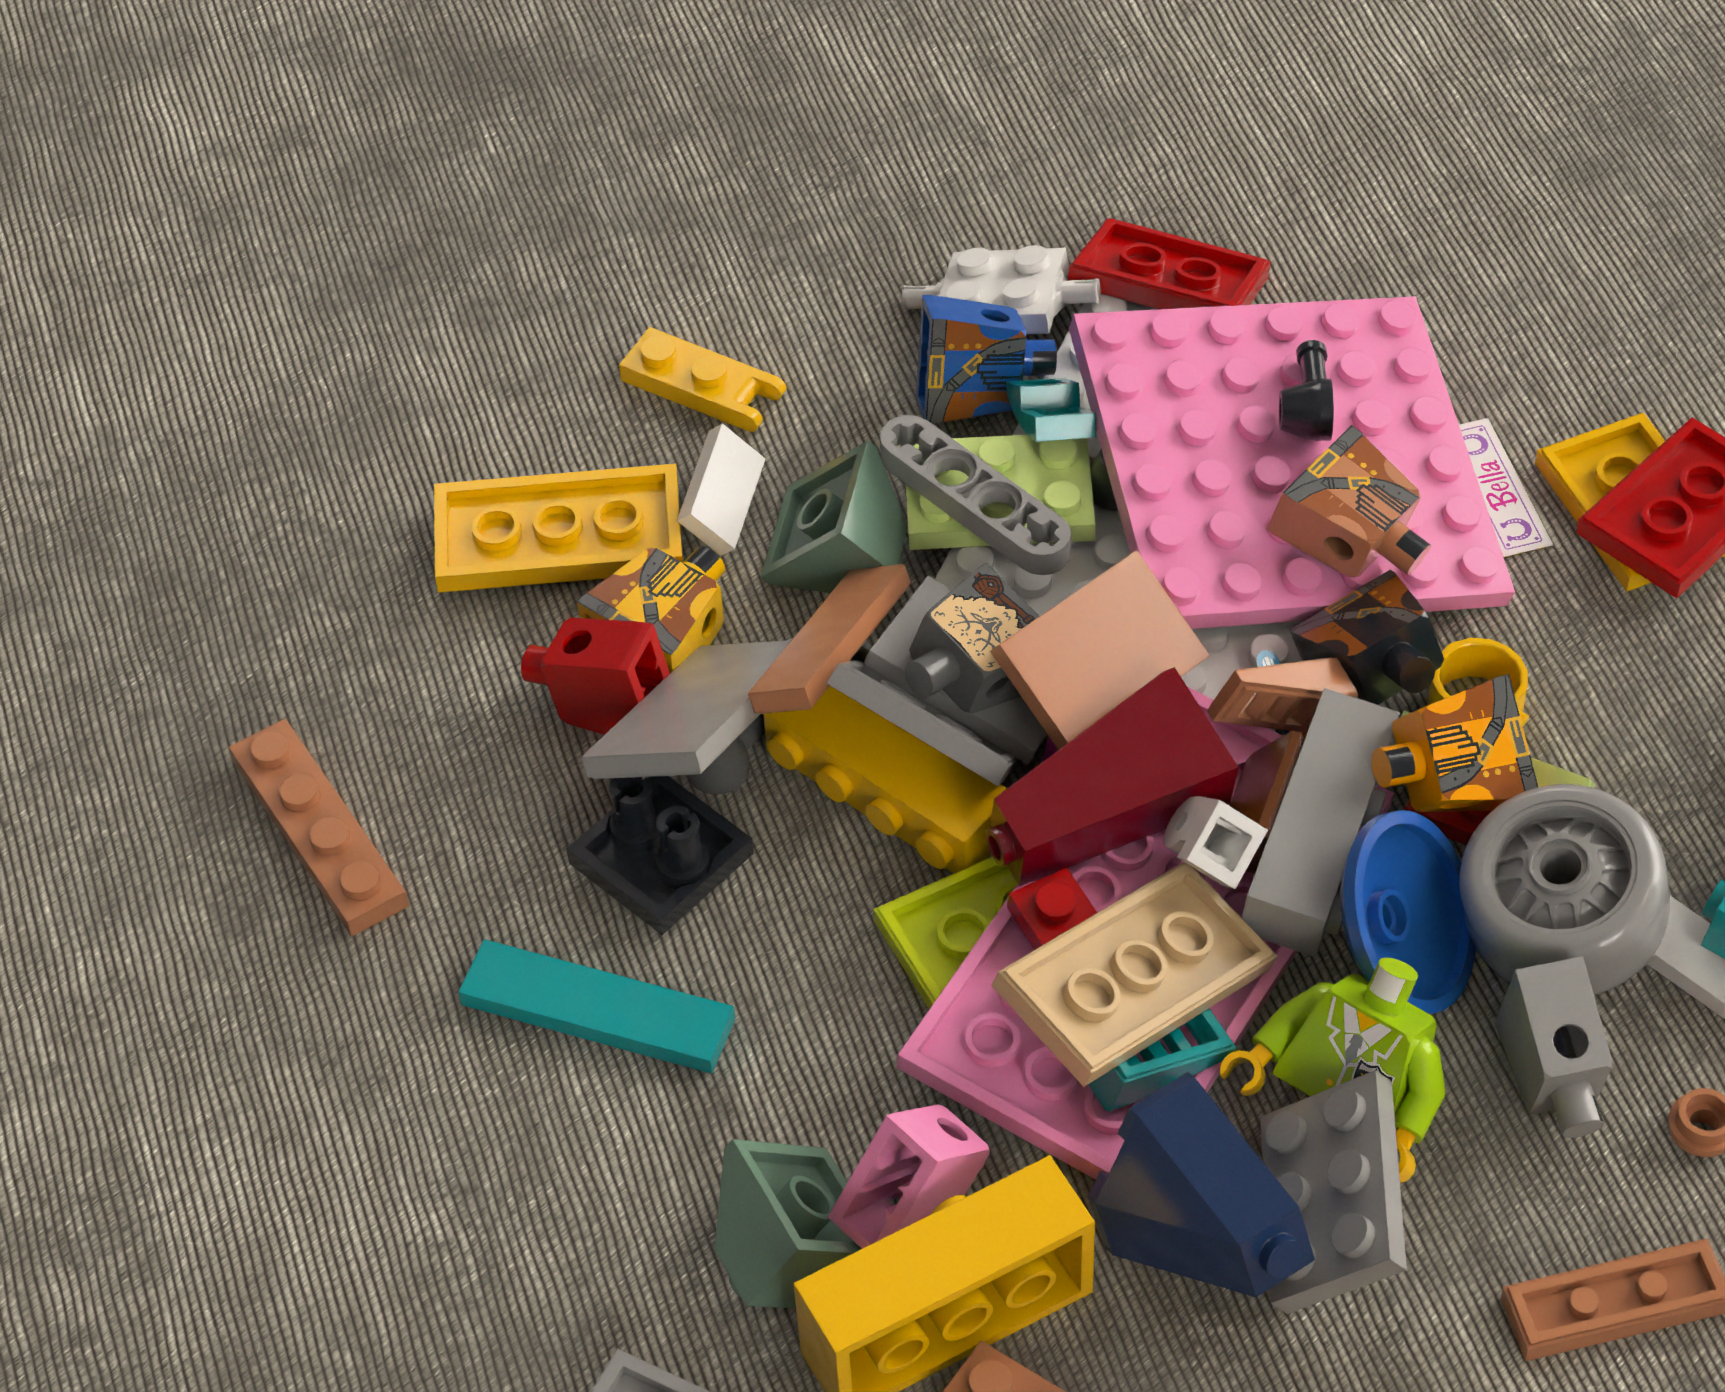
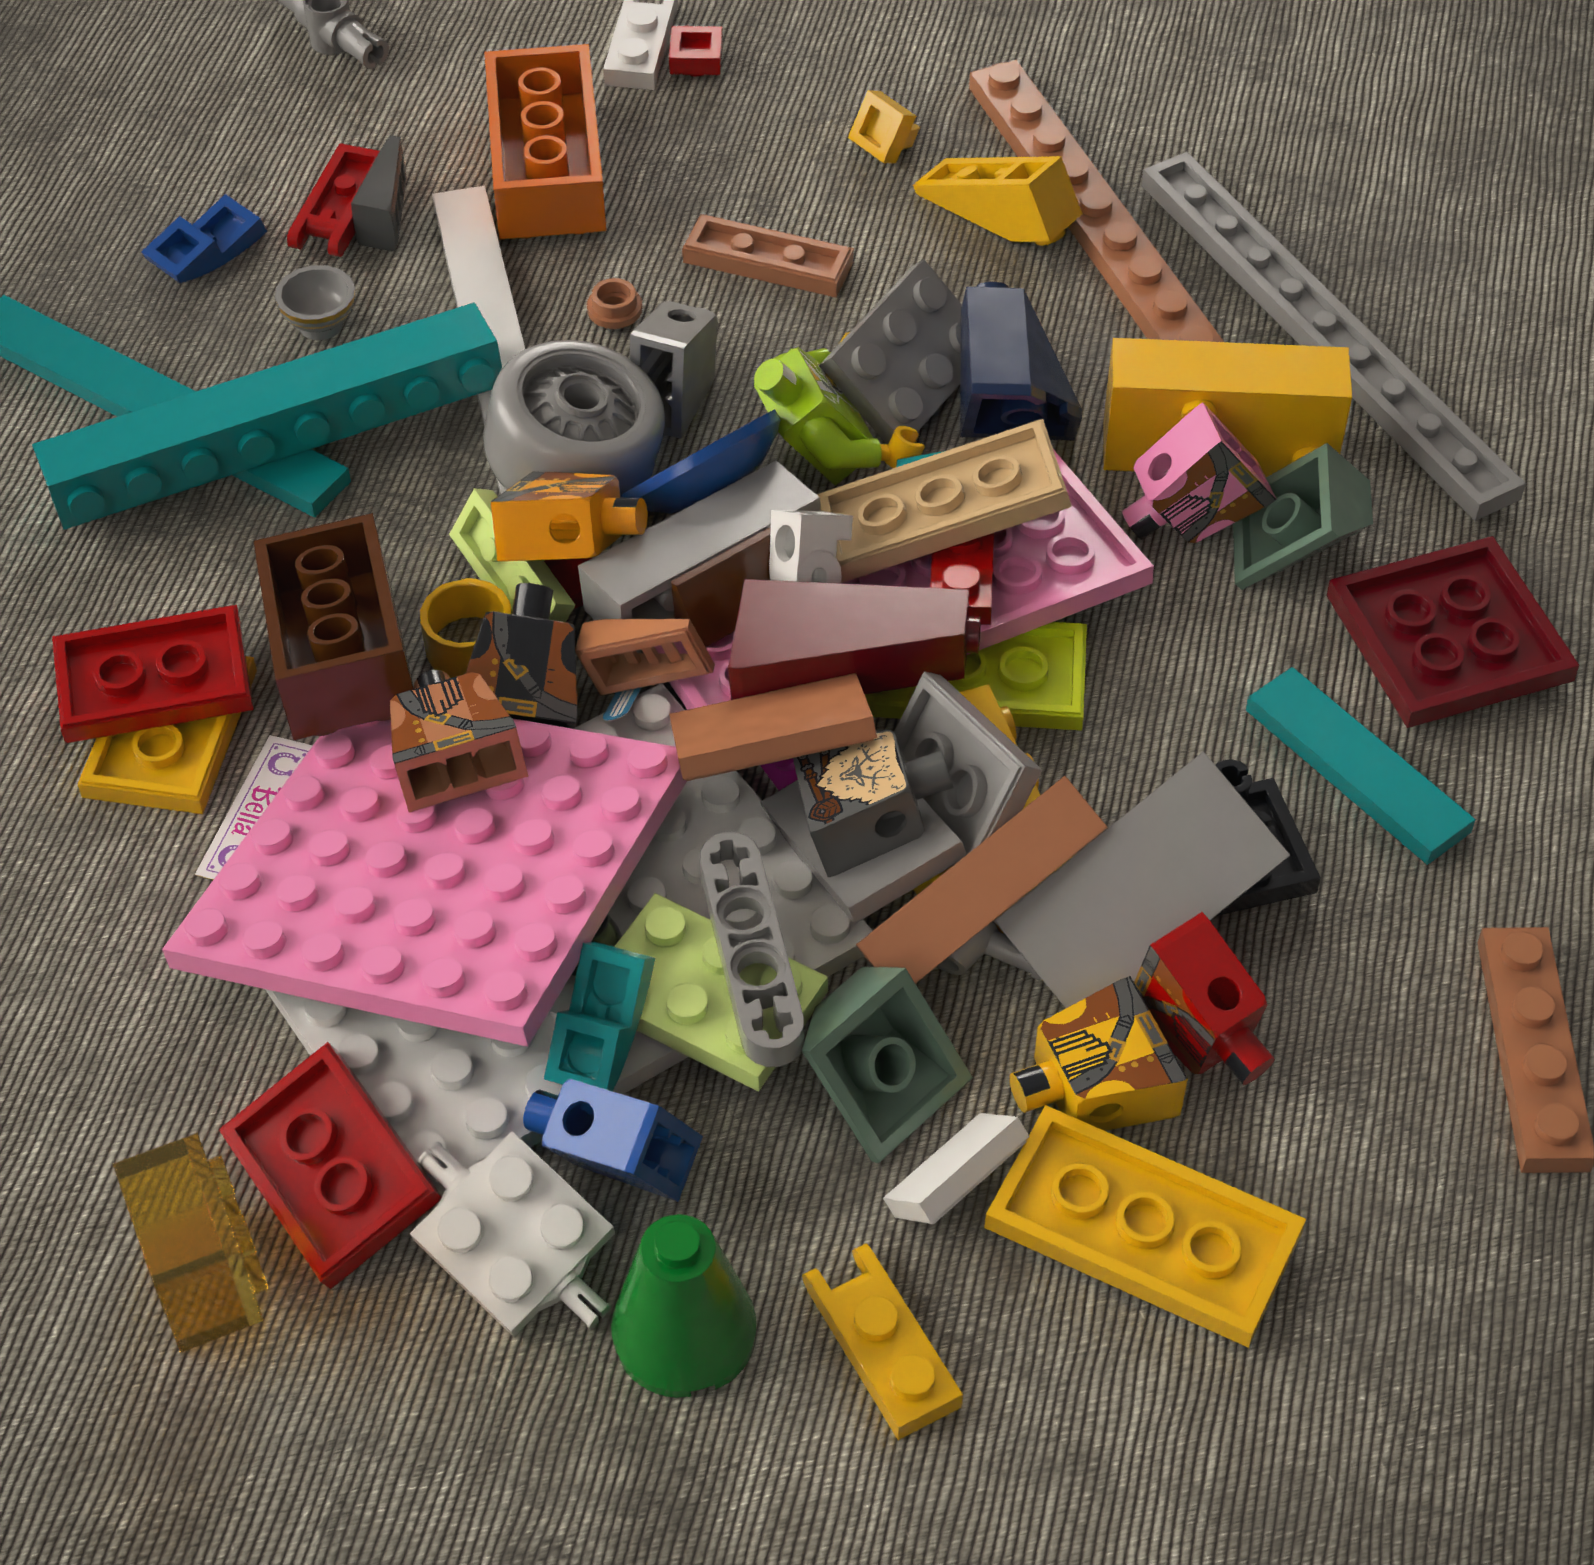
camera: 150 degrees left, 0 degrees up
(576, 1190) = (1451, 631): none -> dark red plate
(843, 297) = (682, 1312): none -> green cone
(1198, 158) = (193, 1240): none -> clear yellow brick
(1309, 406) = (392, 830): black bar -> none
(1563, 580) = (332, 626): none -> reddish brown brick

